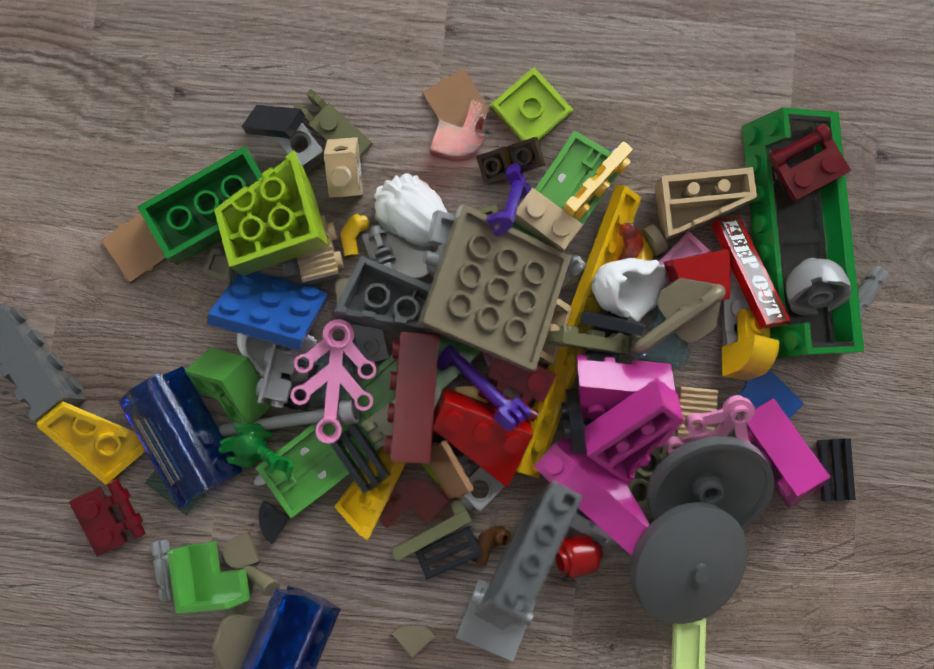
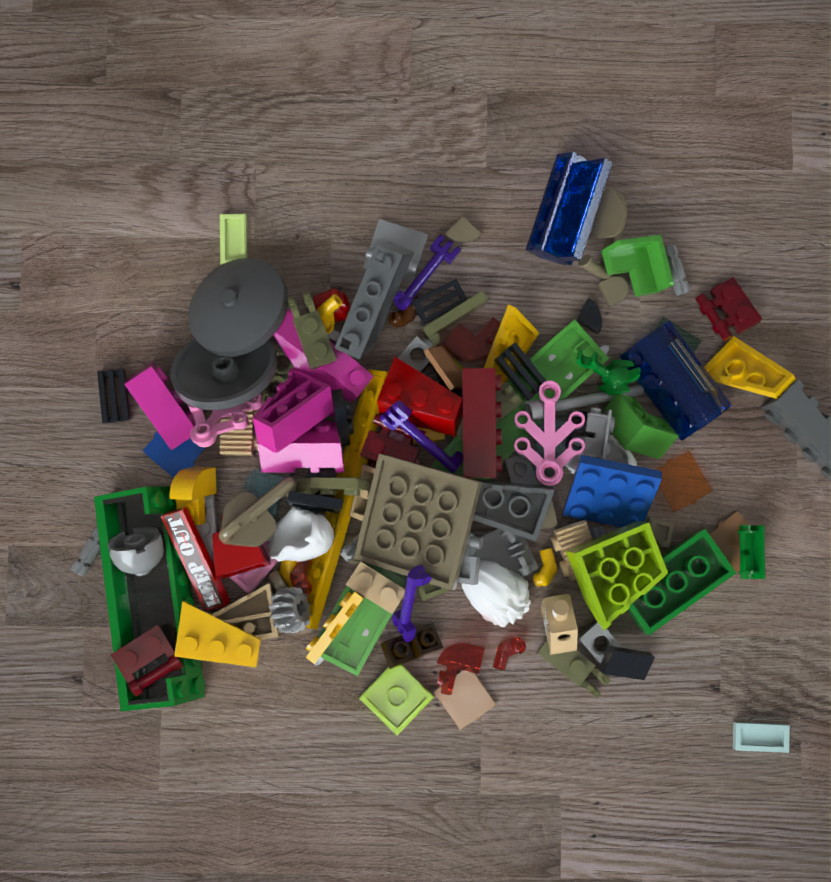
camera: 175 degrees right, 0 degrees up
(117, 232) = (752, 552): none -> green hinge
(135, 35) = (761, 737): none -> light aqua tile
(186, 320) = (683, 482): none -> clear orange piece
(406, 149) = (506, 649): none -> clear red arm
(490, 557) = (404, 299): none -> dark purple hinge
(586, 545) = (327, 310): none -> yellow arm
(604, 521) = (312, 334): none -> olive hinge
(646, 204) = (290, 610): none -> light grey gear
(736, 176) = (213, 640): none -> yellow wing

